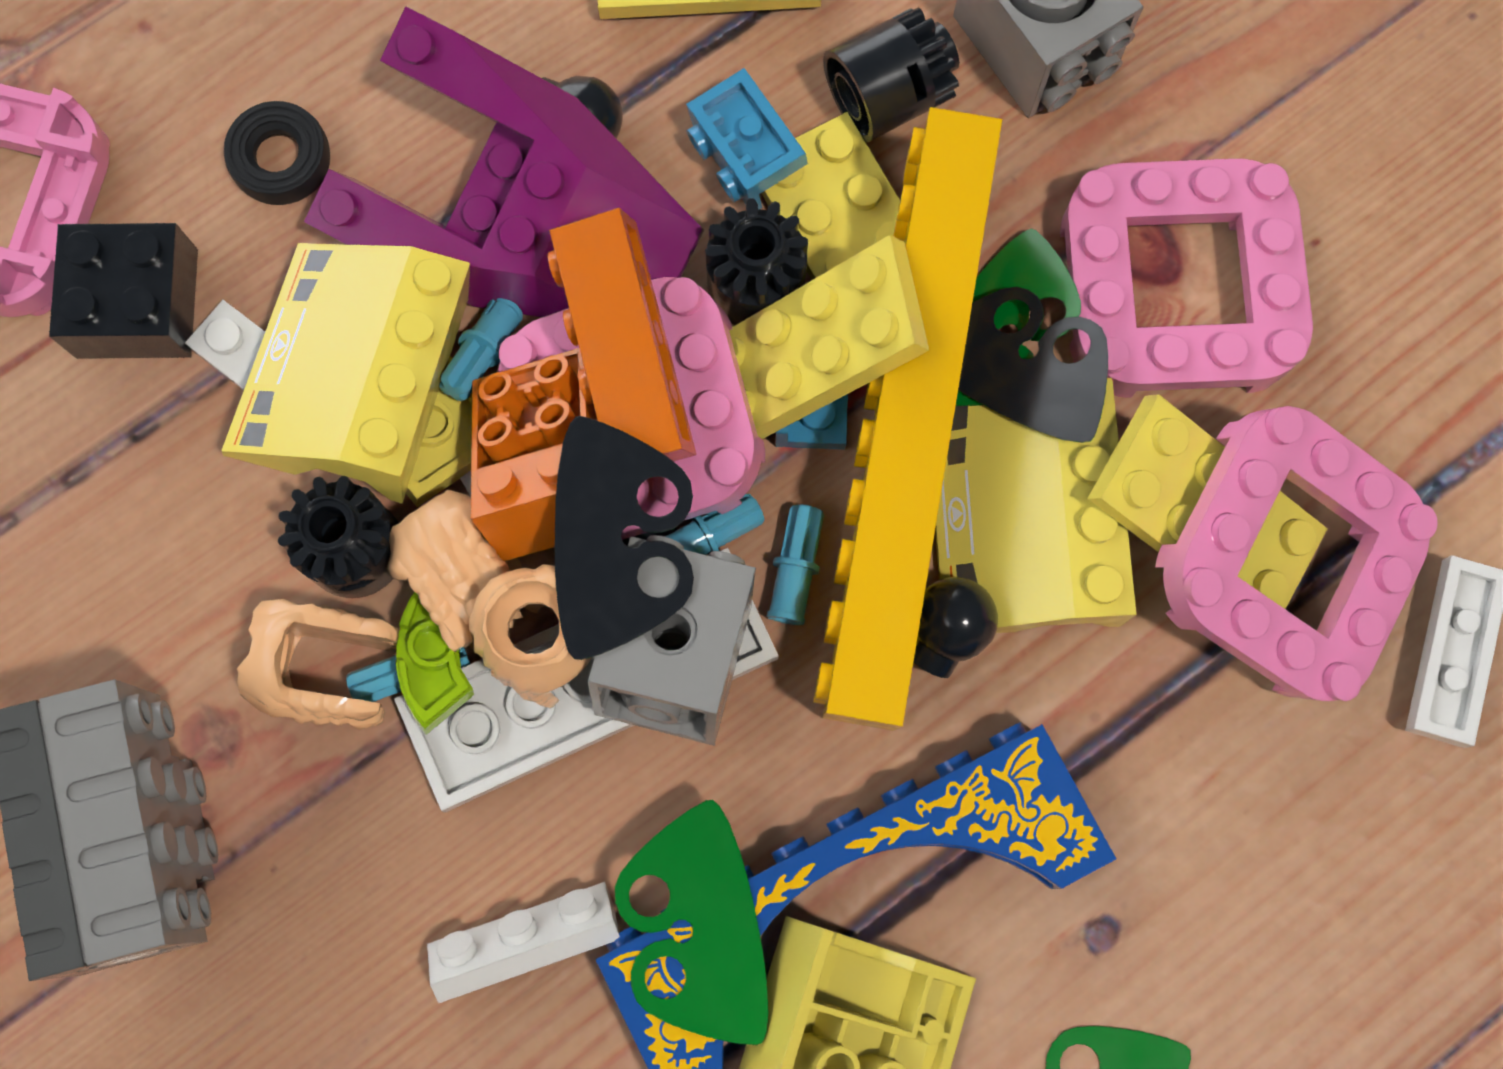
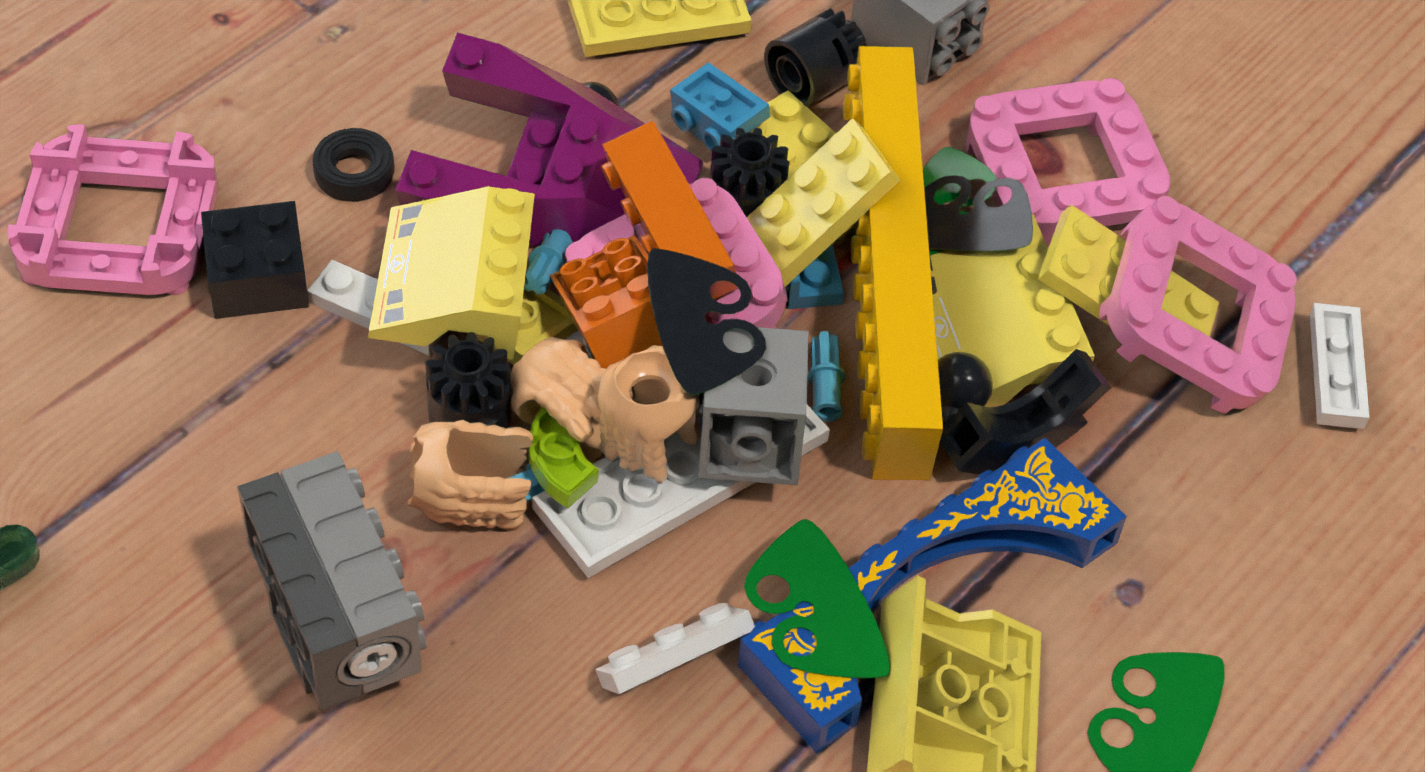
camera: 15 degrees left, 25 degrees down
(1023, 687) = (987, 436): none -> black arch

